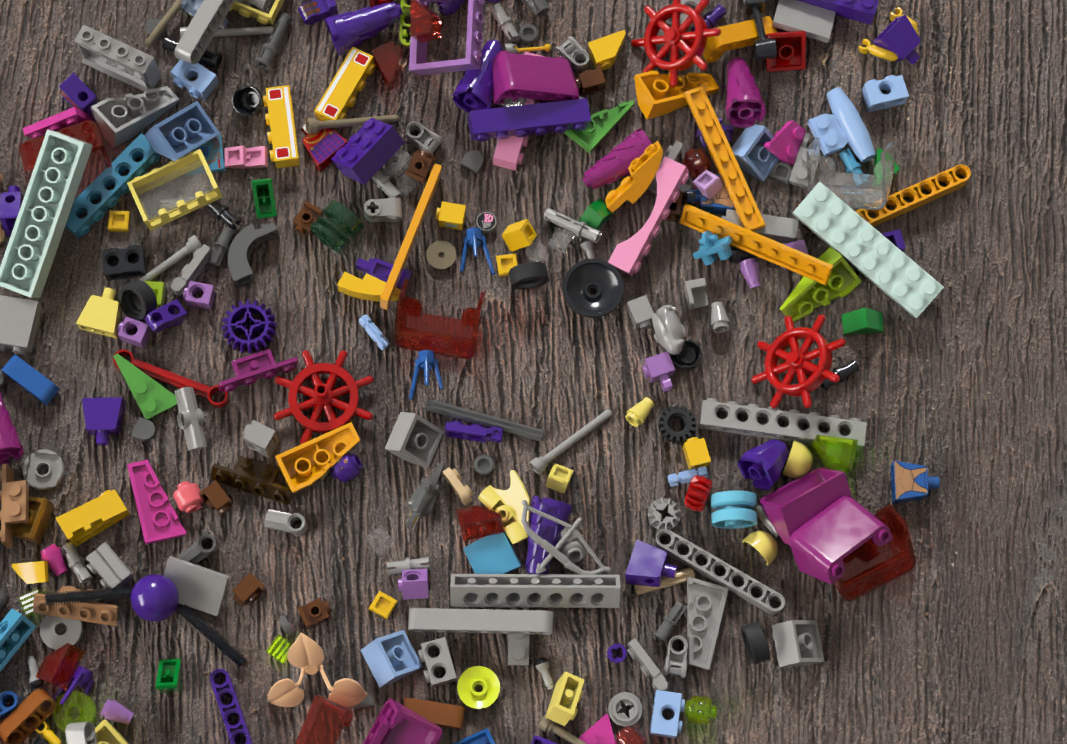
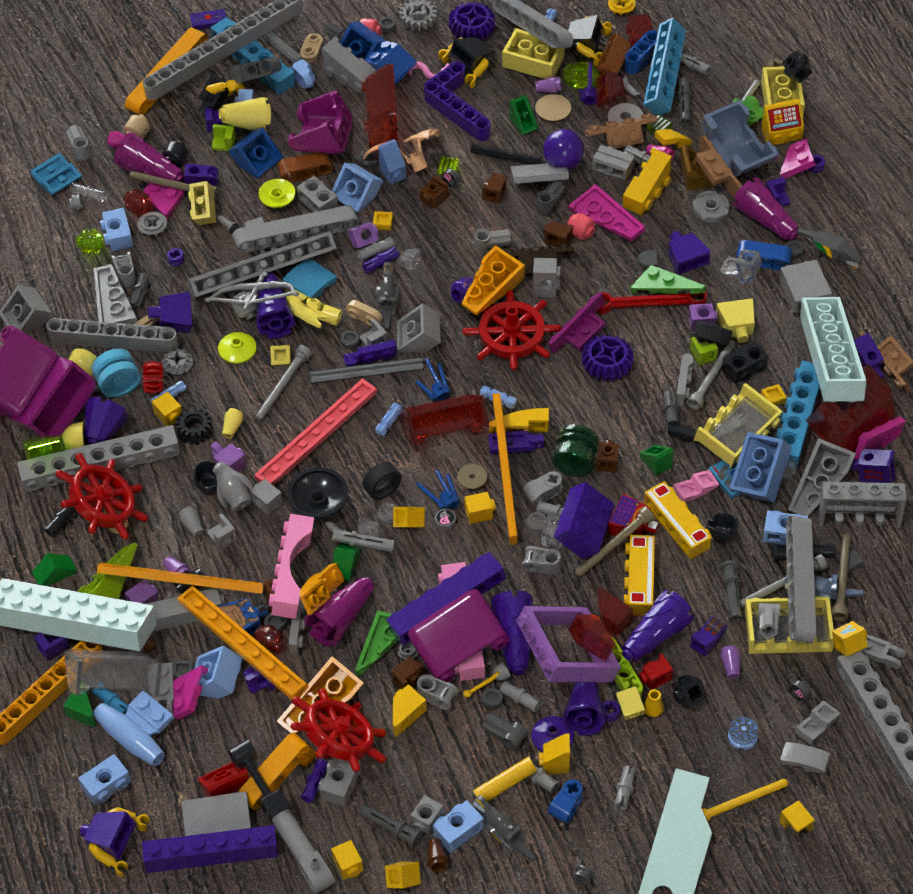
camera: 160 degrees right, 20 degrees down
(61, 370) = (743, 267): none -> clear brick
(88, 595) = (614, 129): black axle -> none
(128, 683) = (553, 107): none -> tan piece
(166, 316) = (681, 331): dark purple leg -> none
(190, 419) = (614, 275): light grey piece -> none
(205, 301) = (664, 363): medium lavender brick -> none
(242, 247) = (647, 400): dark grey arch -> none
(340, 665) = (391, 162): none -> medium blue slope
(409, 550) = (380, 259): none -> dark purple pin
(421, 174) = (529, 532): reddish brown brick -> none
(461, 453) = (375, 335): none -> light grey panel
(478, 522) = (334, 291): clear red slope -> none
(488, 353) = (388, 419): none -> light blue axle
(505, 263) = (408, 493): yellow tile -> none
(564, 364) = (316, 432): none -> coral plate
(598, 518) = (237, 347): none -> neon yellow dish
(648, 667) = (146, 255): light grey hinge -> none
(708, 184) = (249, 614): lavender slope -> none
(711, 244) = (219, 566): dark azure hips -> none
(744, 98) = (246, 703): magenta cone -> none
(755, 642) = (61, 293): black tyre -> none

